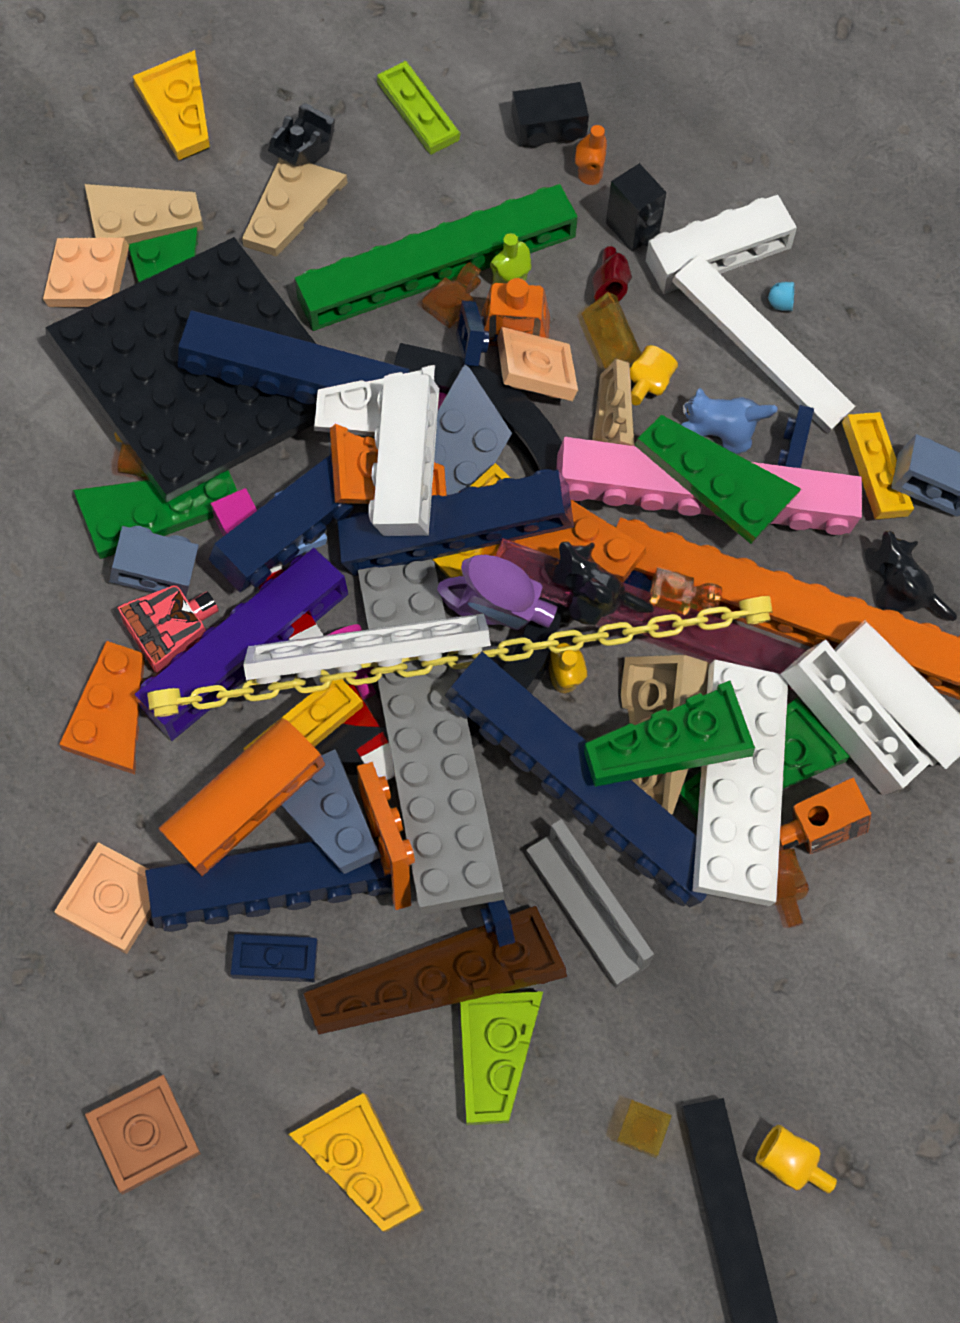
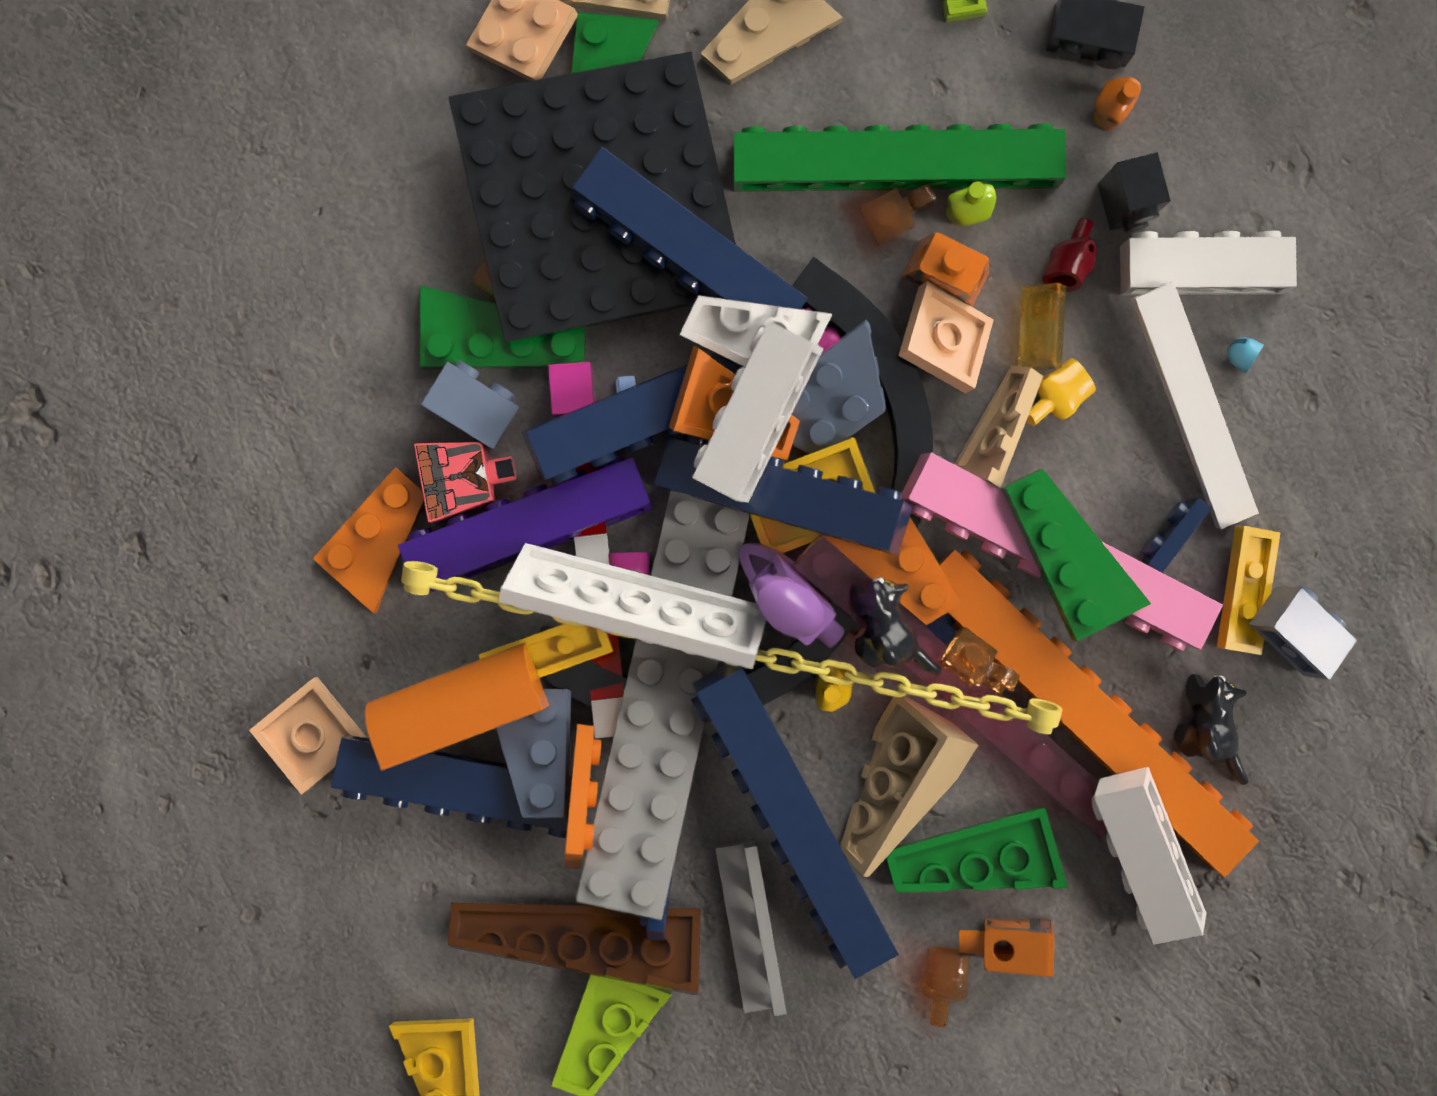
camera: 25 degrees right, 20 degrees up
(142, 1134) = (258, 972): nougat plate -> none
(274, 958) = (437, 856): dark blue plate -> none
(471, 333) = (890, 280): dark blue plate -> none
(689, 736) = (905, 828): green wing -> none
(728, 419) = (1120, 478): medium blue animal -> none
(744, 796) = (947, 879): white plate -> none
(855, 718) = (1088, 862): white brick -> none

